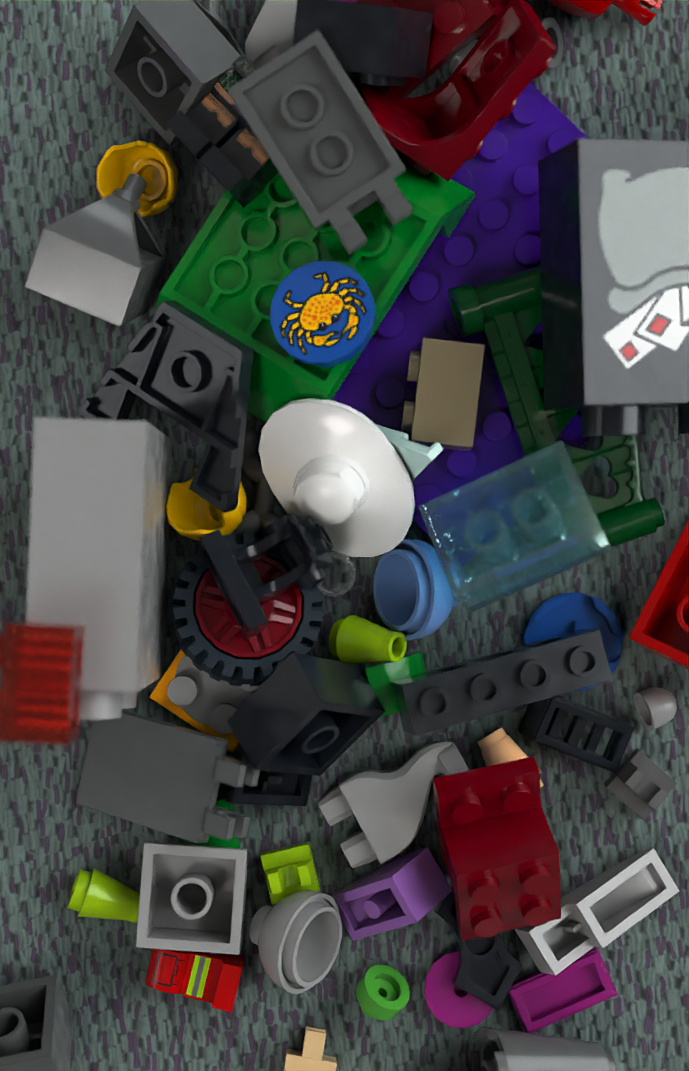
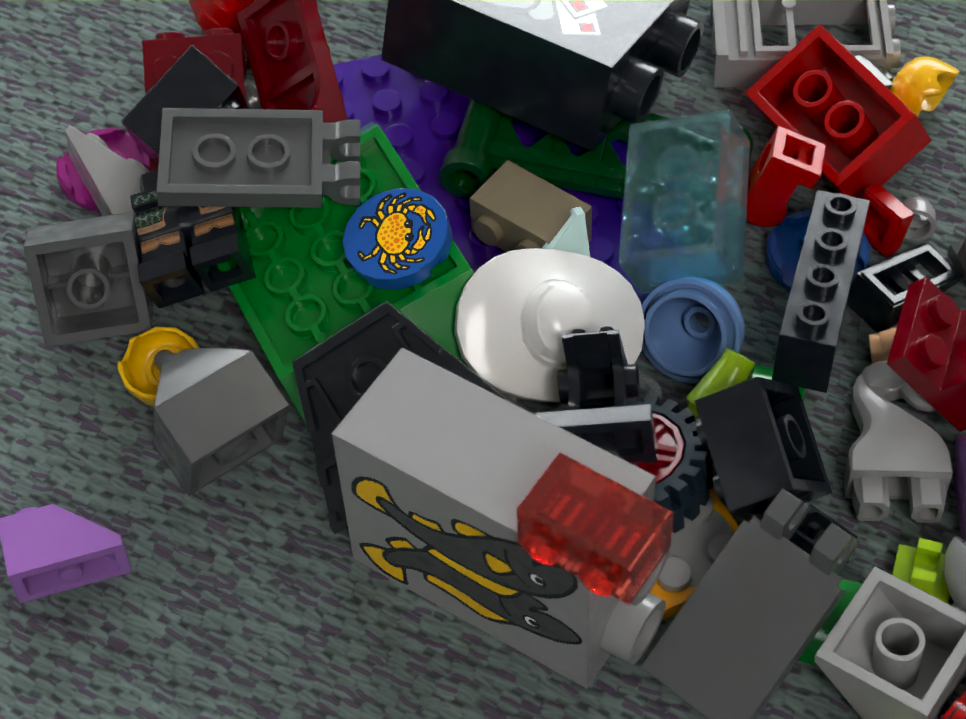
camera: 55 degrees left, 35 degrees down
(618, 585) = (782, 165): none -> red leg
(630, 683) = (886, 220): none -> red tile

